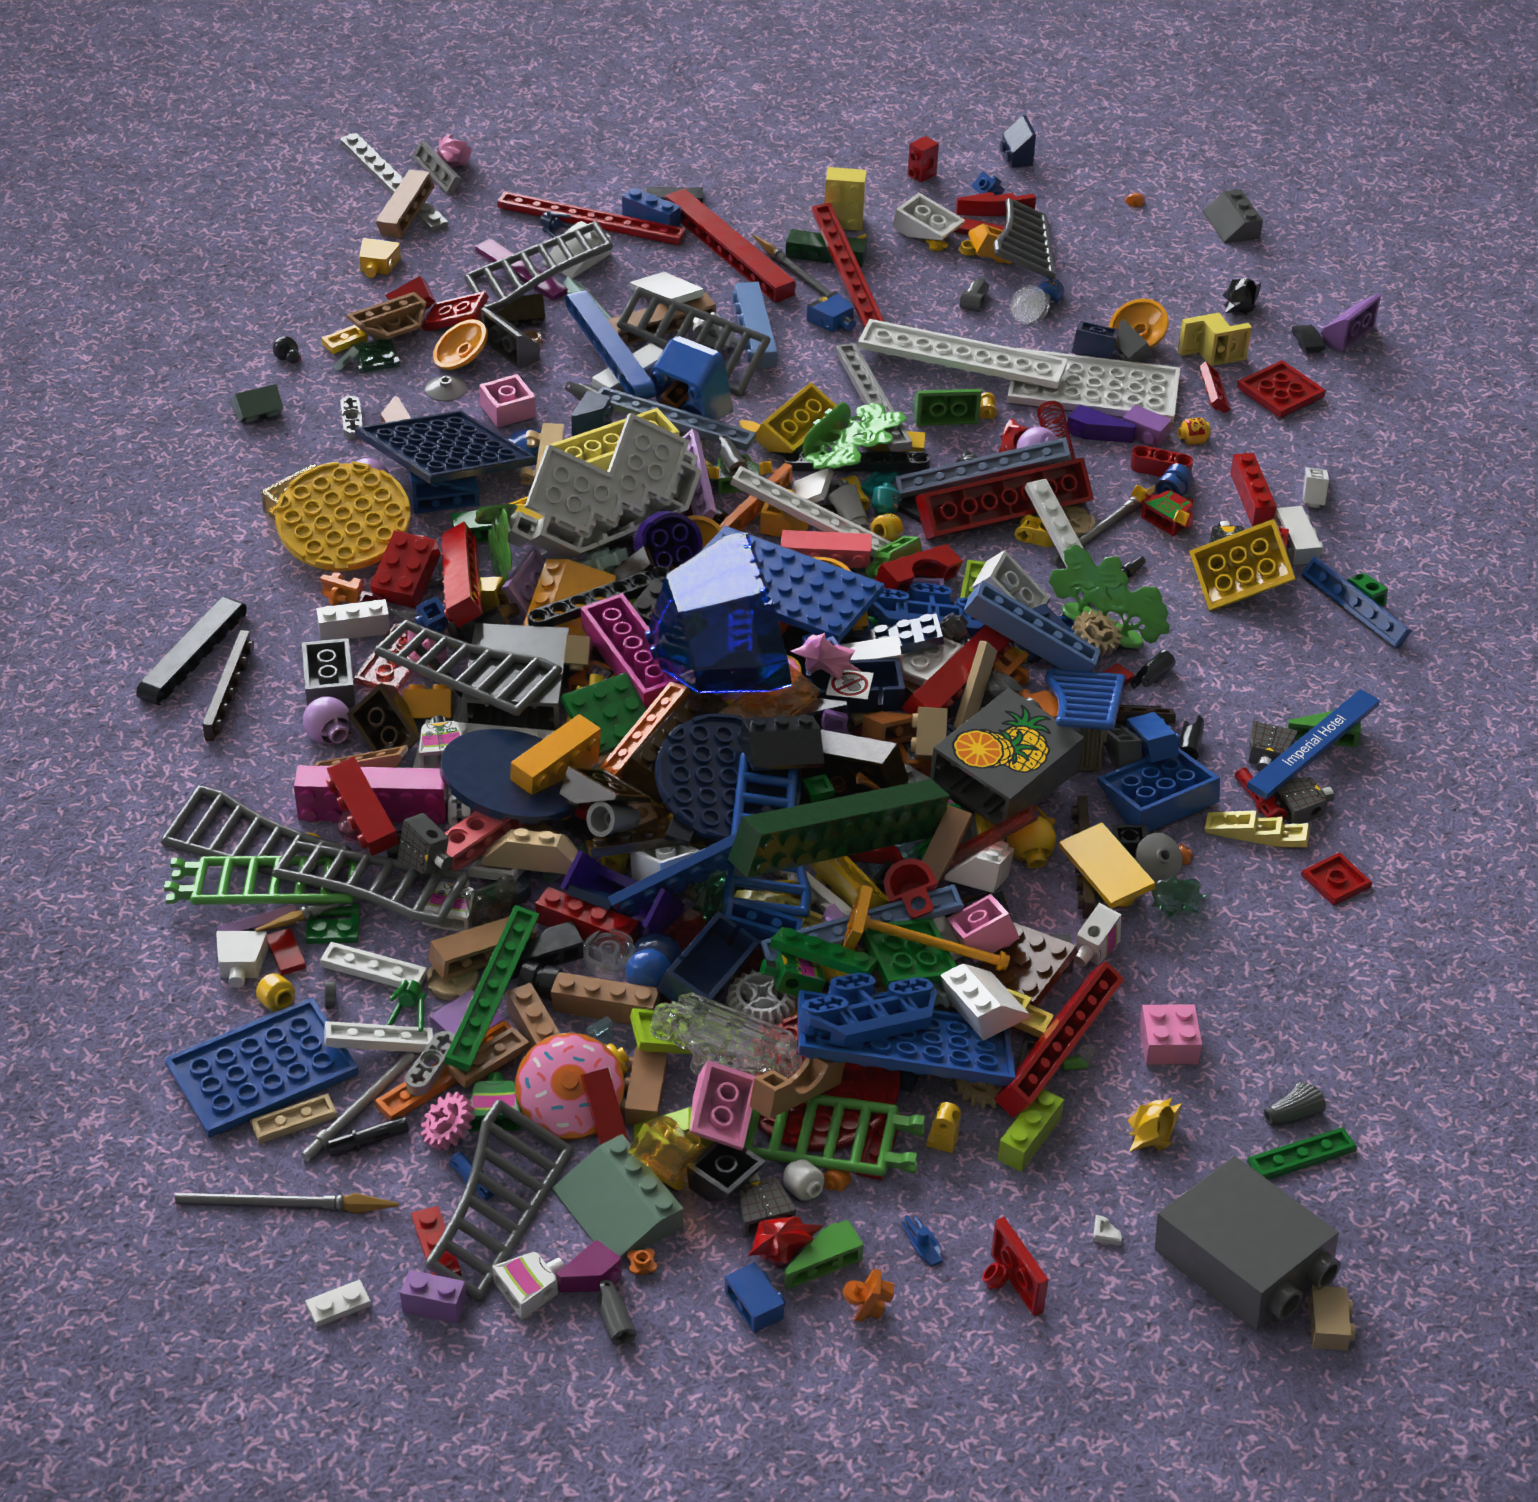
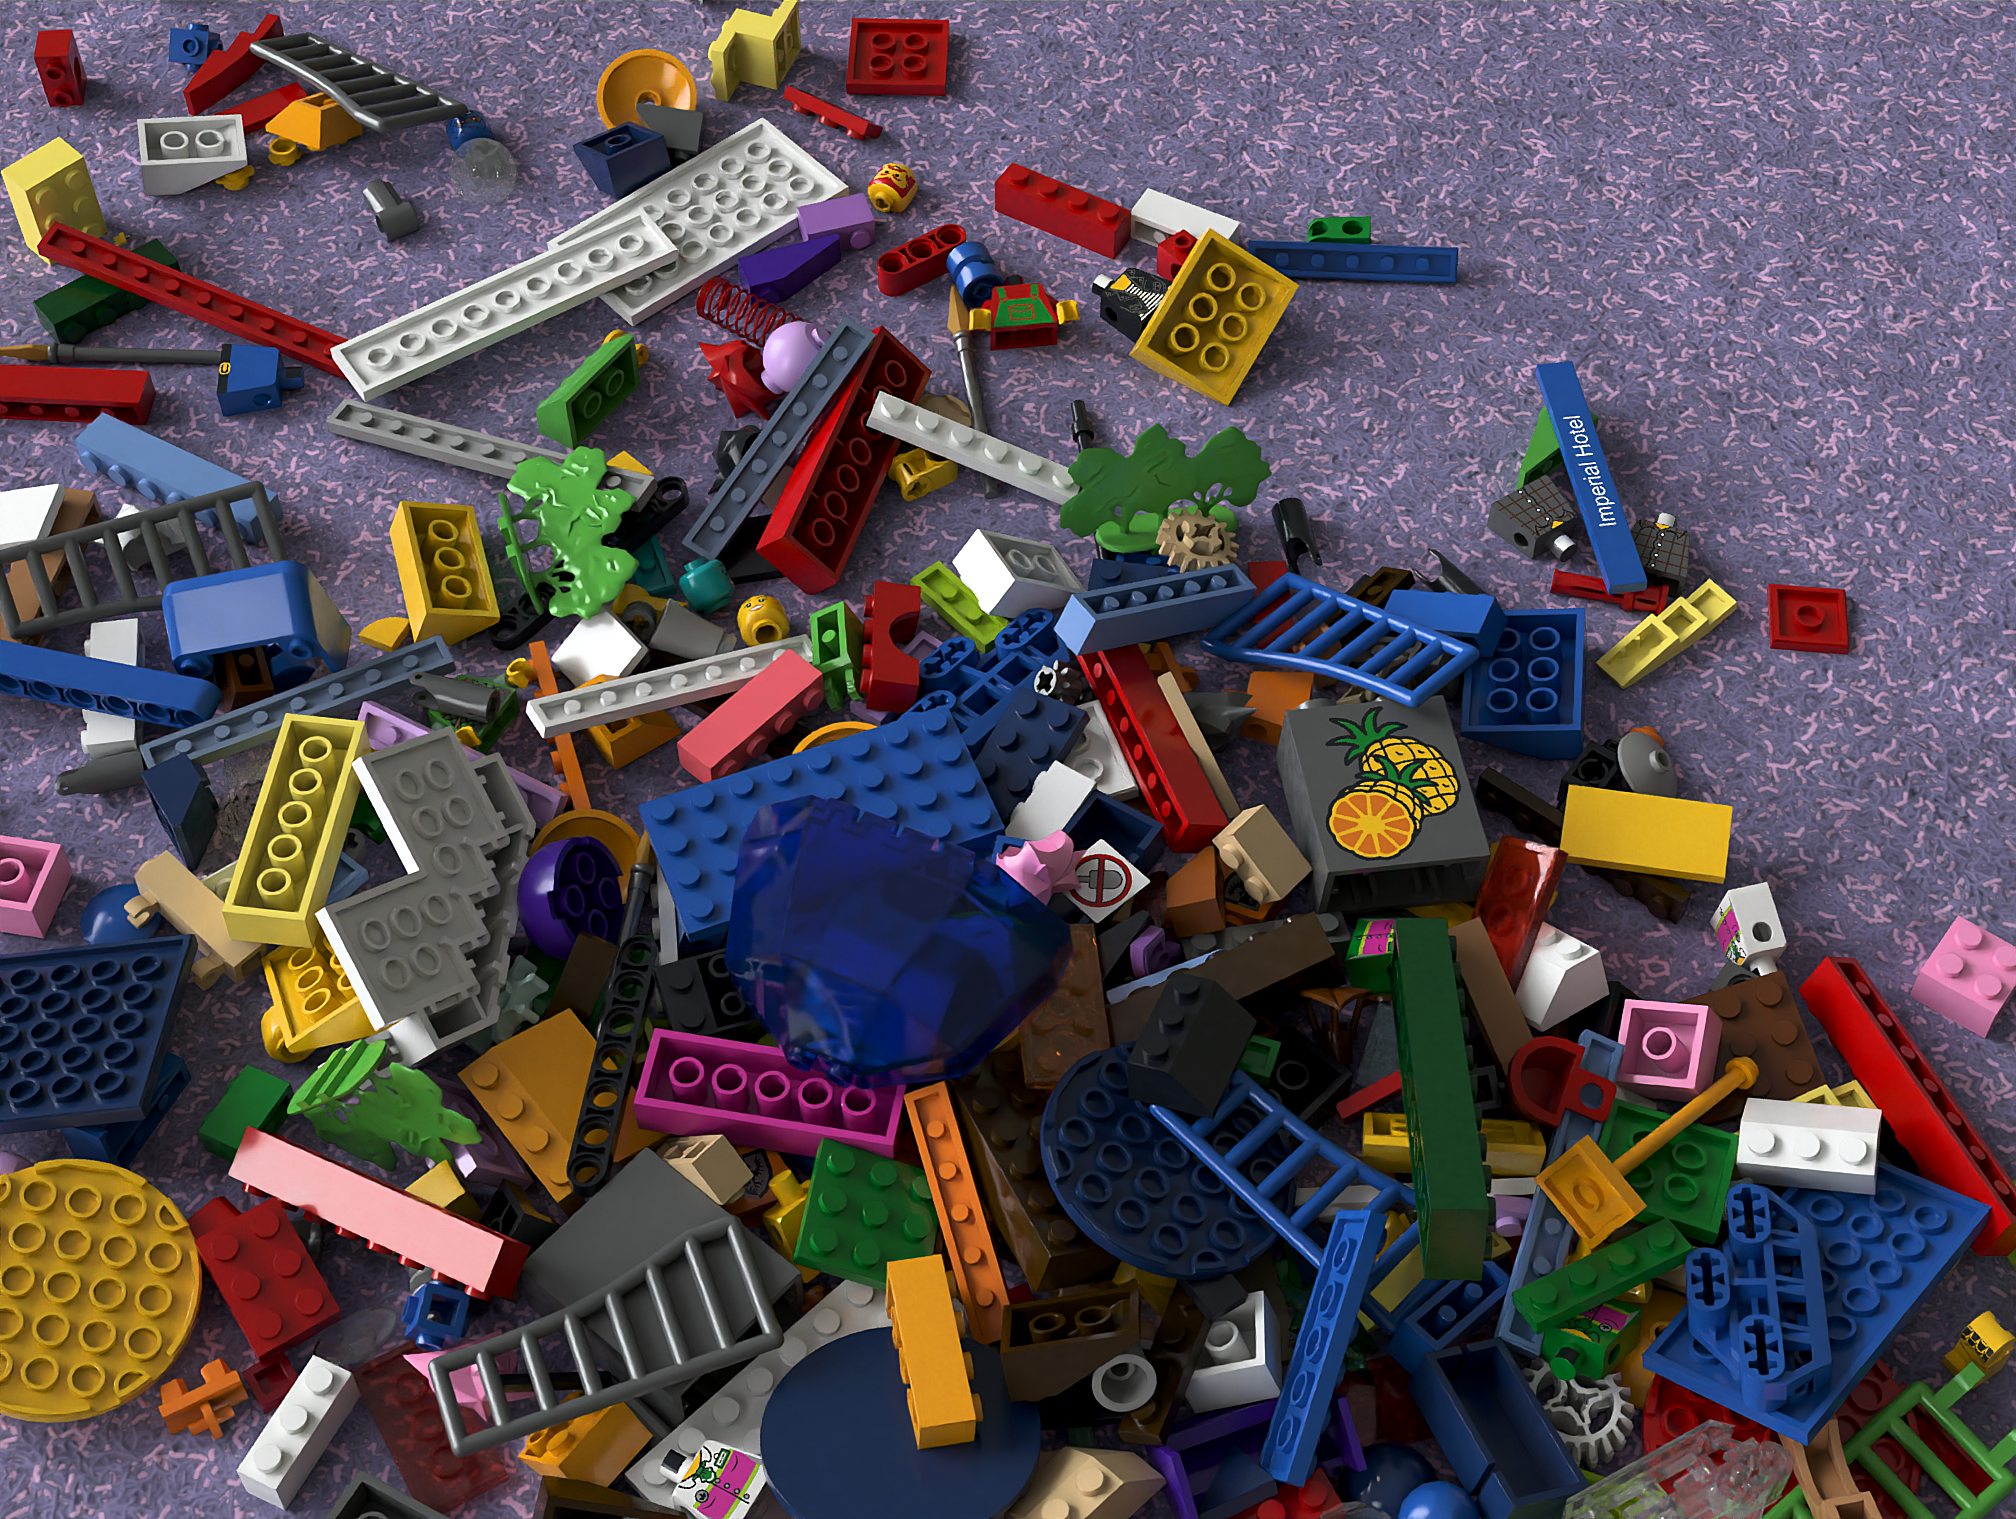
camera: 50 degrees left, 10 degrees up
(1177, 896) = (1738, 787): clear green hair -> none
(1315, 487) = (1113, 150): white slope -> none

